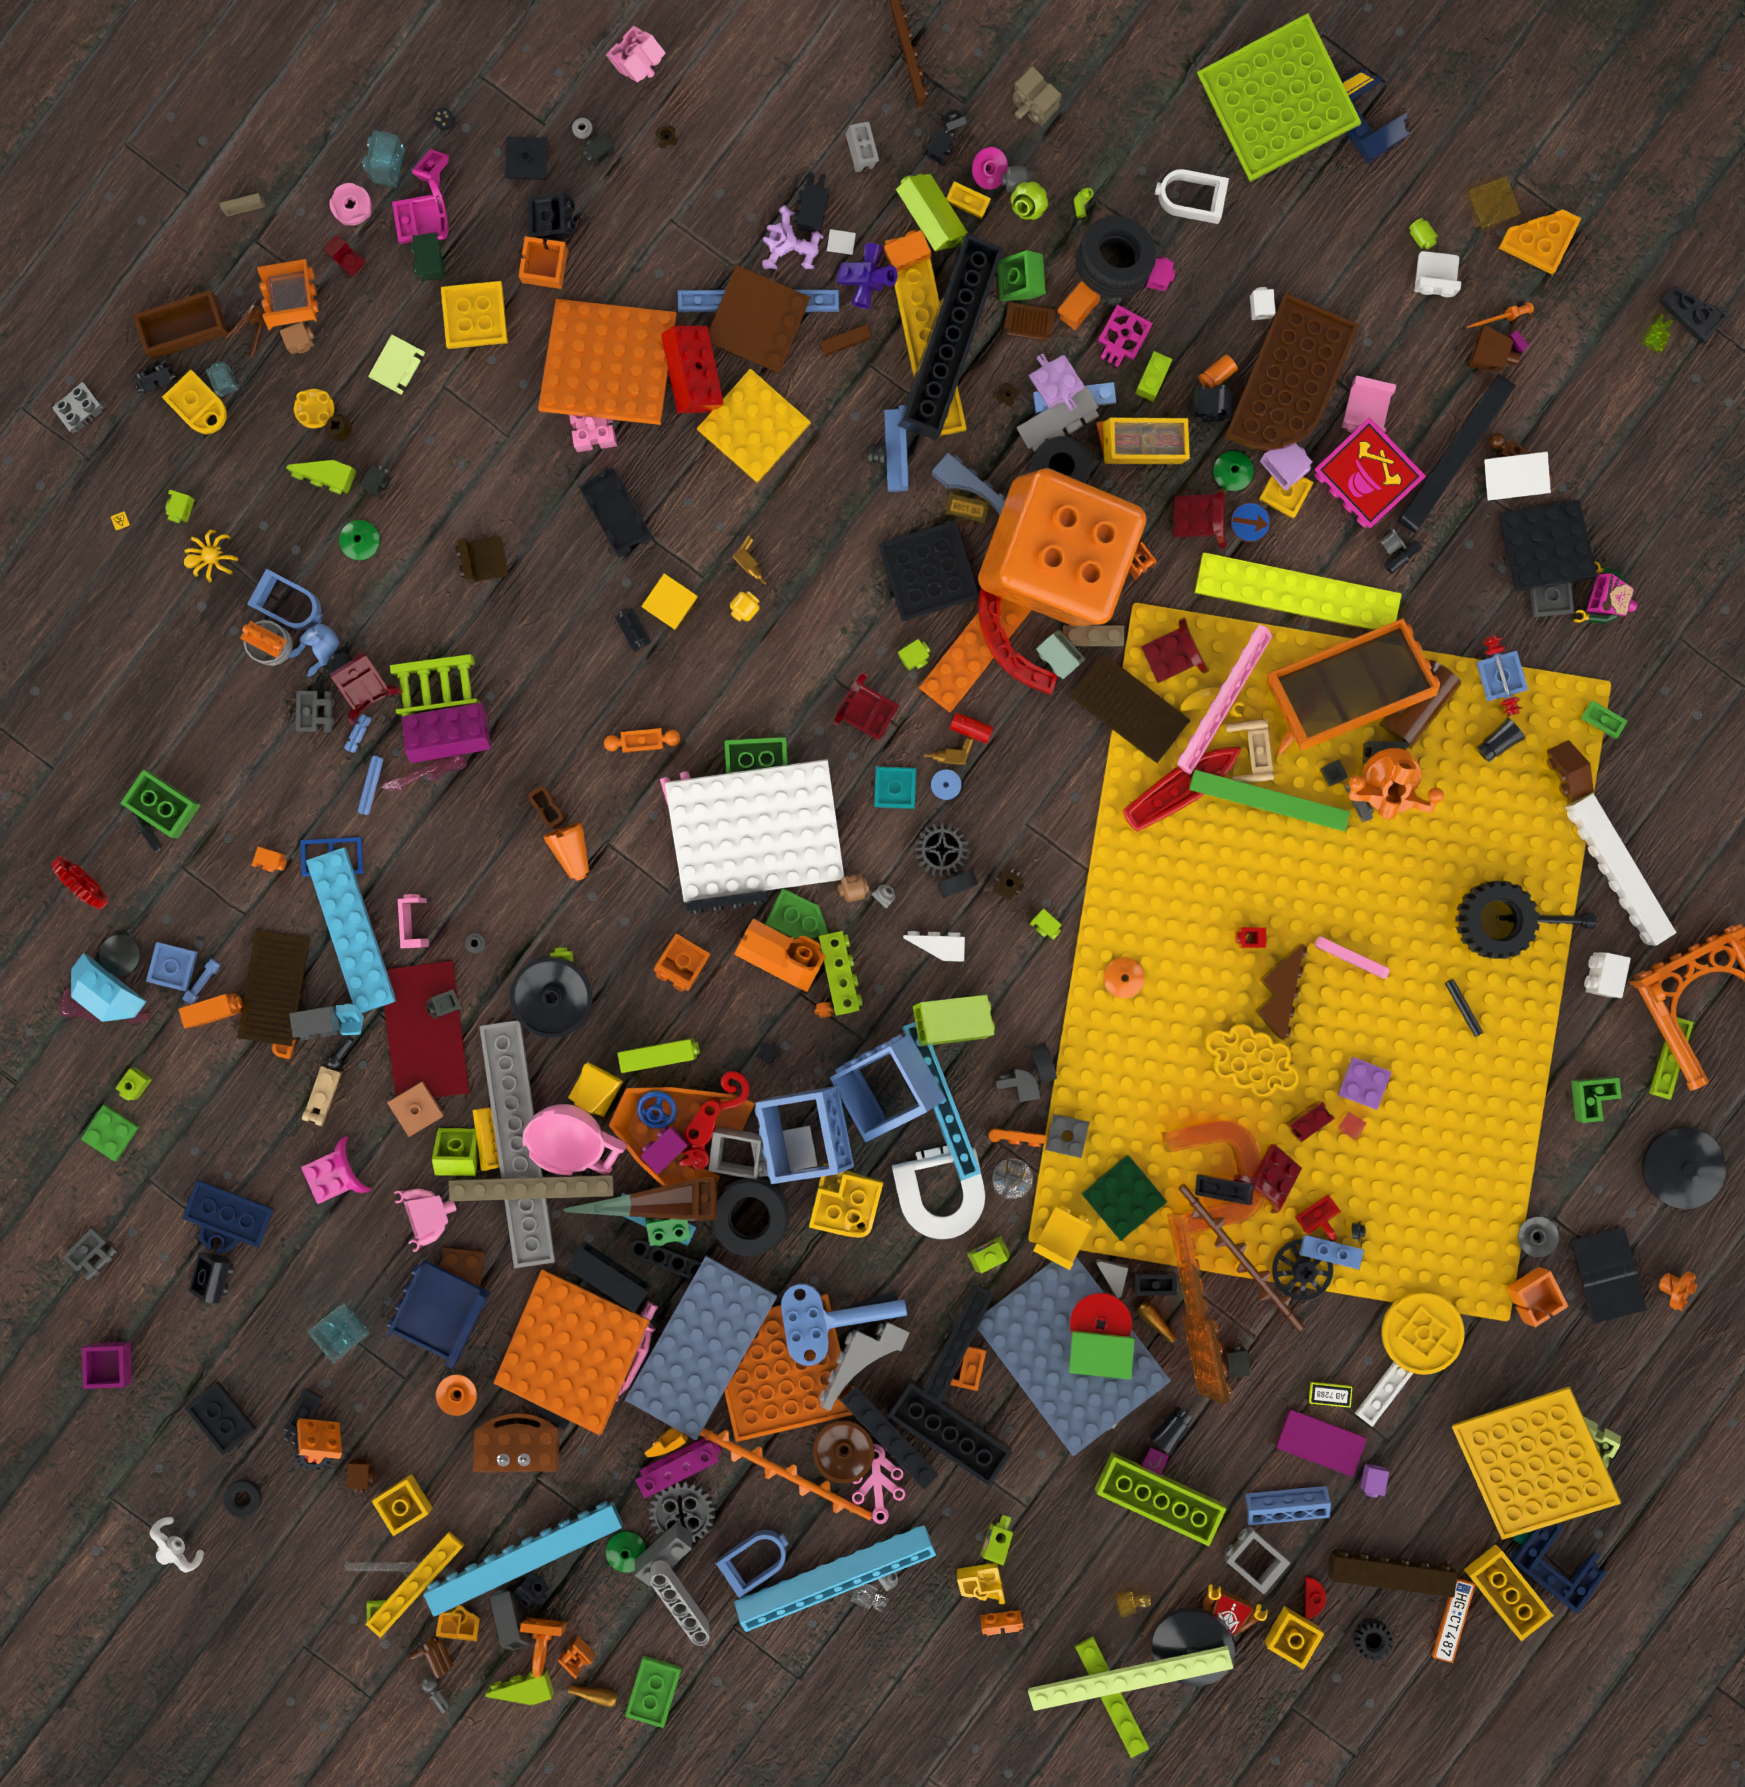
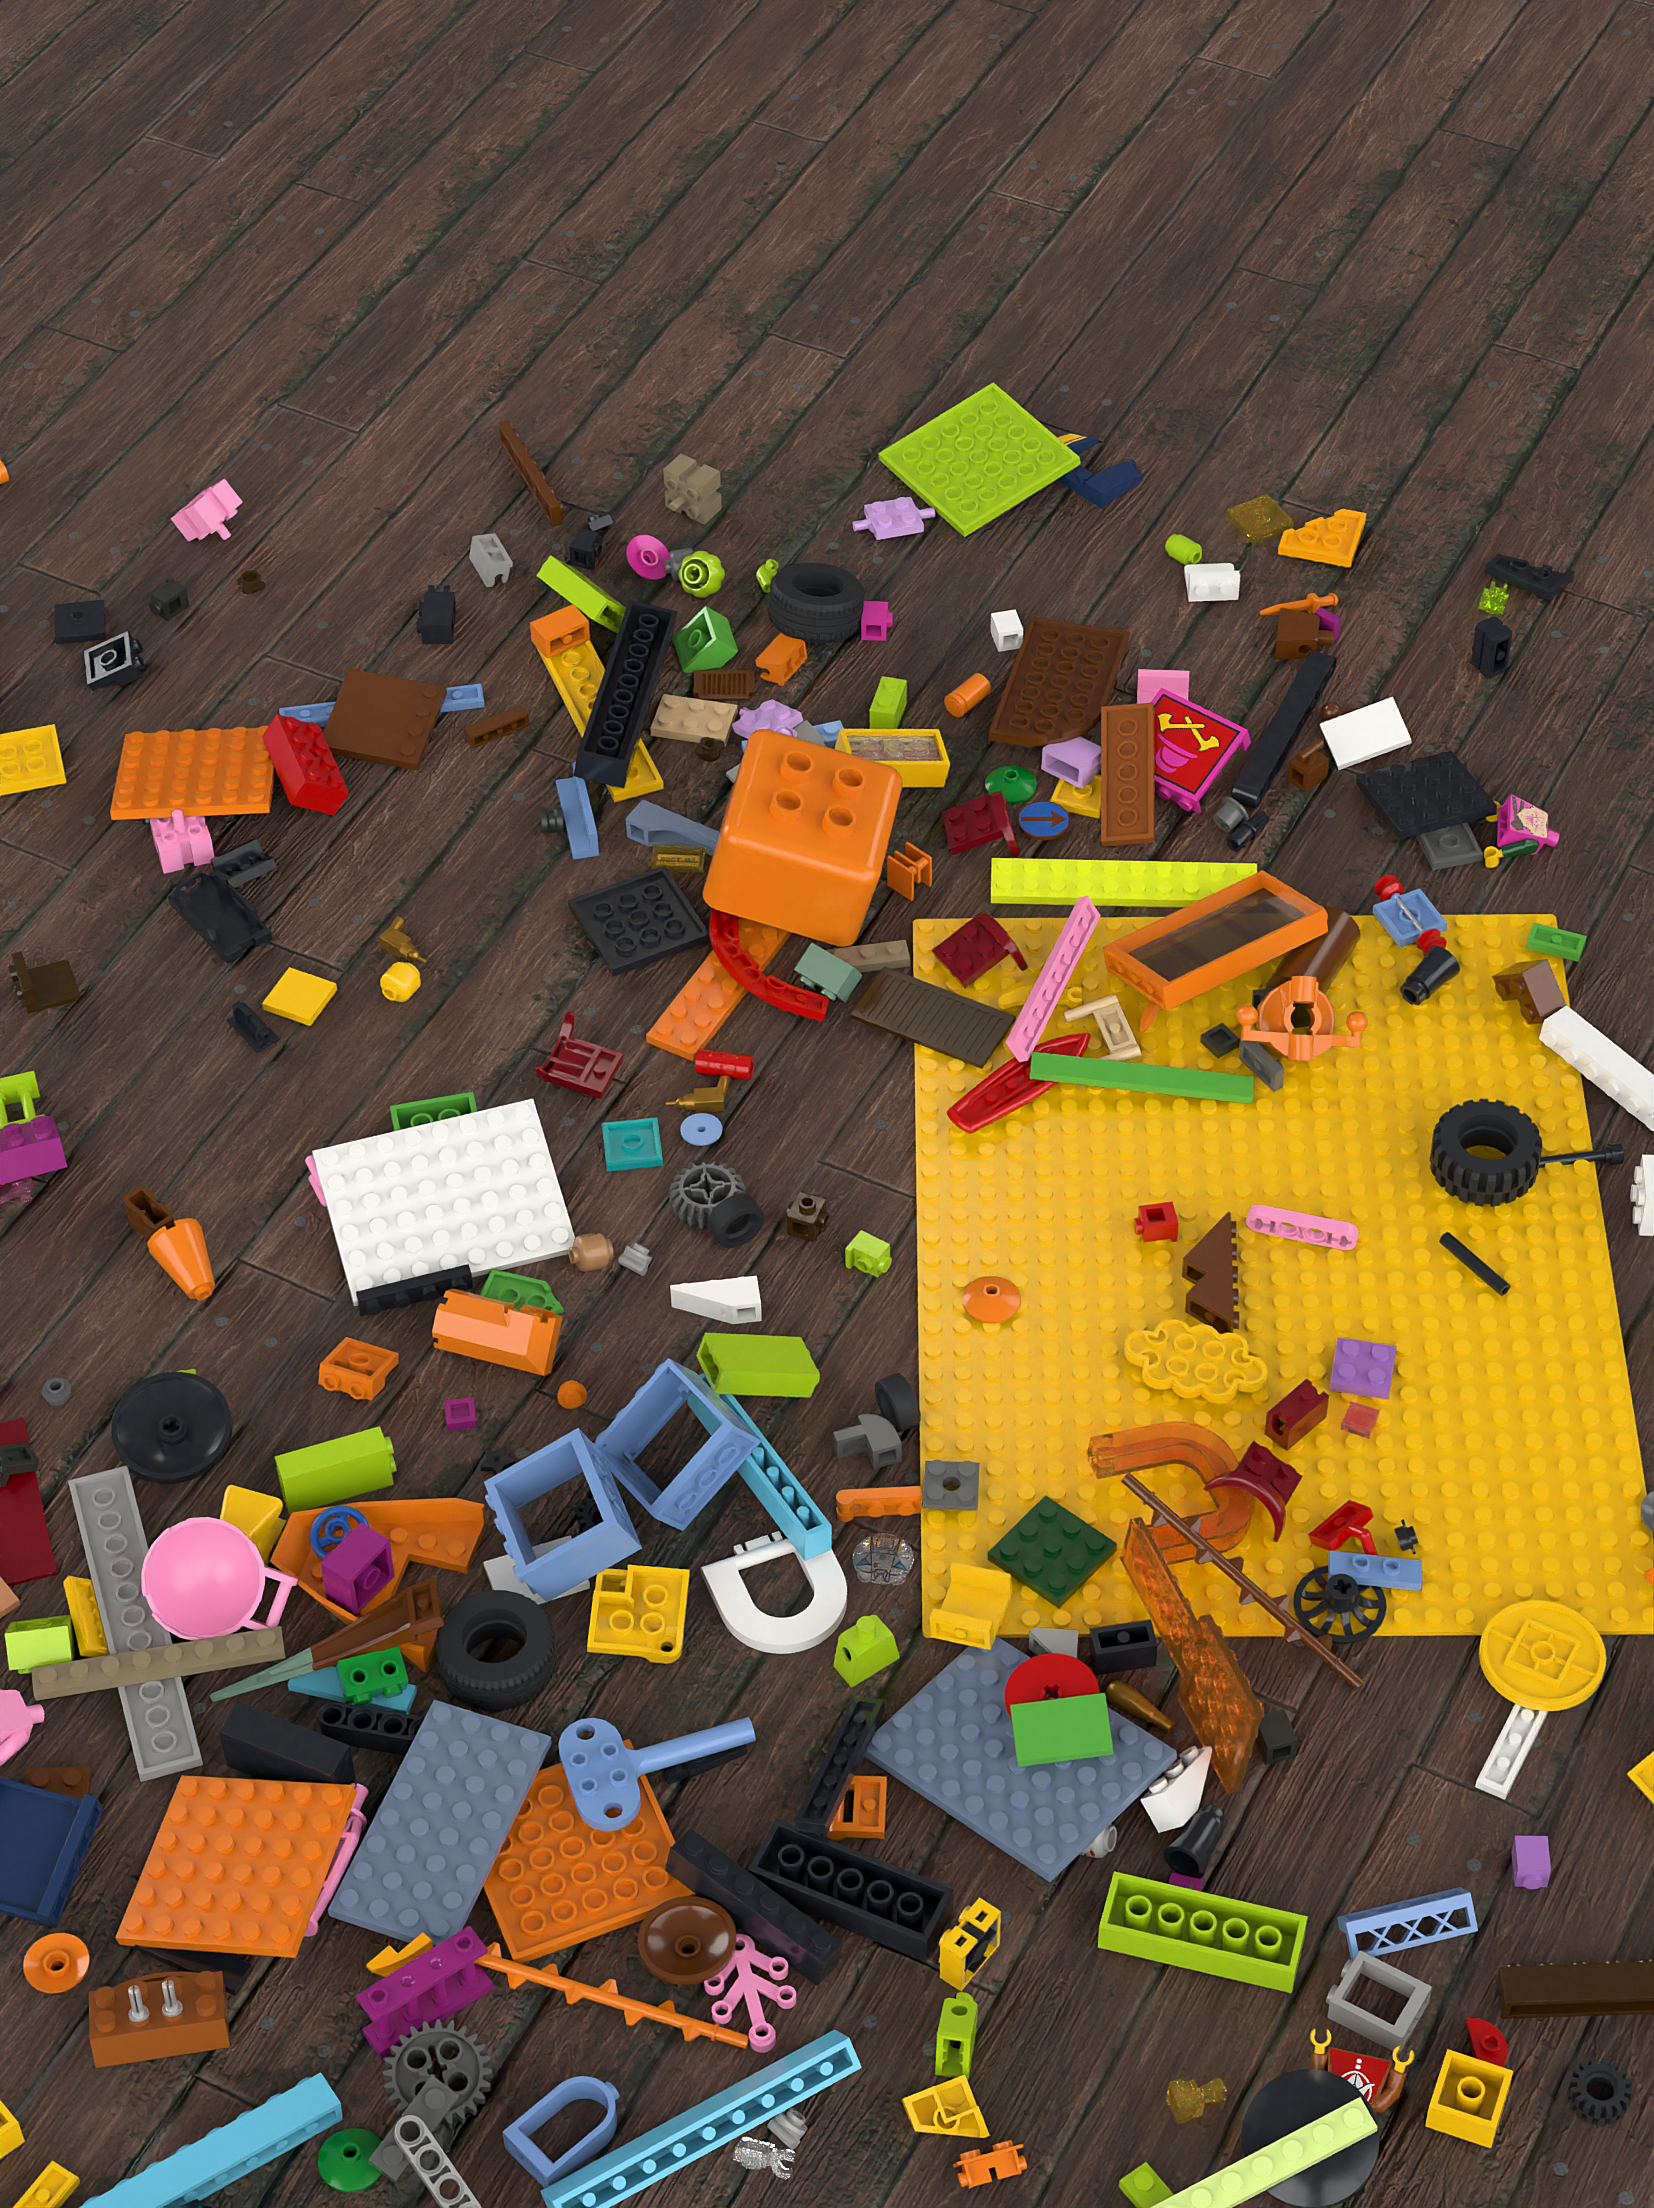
camera: 10 degrees left, 40 degrees down
(545, 266) = (104, 708): orange piece -> none
(582, 134) = (146, 587): light grey plate -> none
(637, 463) = (243, 863): none -> black bracket
(642, 740) = (276, 1137): orange plate -> none
(705, 1122) = (414, 1531): red animal -> none
(716, 1163) = (467, 1545): light grey window -> none
(747, 1009) = (460, 1414): none -> magenta tile
(754, 426) = (390, 818): yellow plate -> none
(783, 240) = (404, 648): lavender piece -> none
(839, 973) = (588, 1351): lime brick -> none
(841, 242) = (477, 647): white sticker -> none
(859, 1353) = (694, 1799): light grey arch -> none
(867, 275) = (514, 660): dark purple brick -> none
(914, 655) = (633, 1002): lime brick -> none
(968, 200) = (628, 588): yellow plate -> none
(1000, 358) = (693, 719): none -> tan plate
(1016, 1485) = (969, 1943): none -> yellow piece
(1116, 349) = (838, 693): dark pink piece -> none
(1166, 1401) = (1178, 1793): none -> white slope
(1196, 150) = (893, 518): none -> lavender plate
(1211, 216) = (898, 537): white window -> none
(1211, 403) = (965, 716): black brick -> none
(1224, 1189) = (1203, 1495): black plate -> none
(1321, 1442) = (1435, 1830): magenta tile -> none
(1324, 493) = (1127, 774): none -> dark orange plate
(1330, 1394) = (1429, 1763): tile -> none
(1464, 501) = (1308, 766): none -> reddish brown brick
(1639, 399) = (1491, 647): none -> black brick

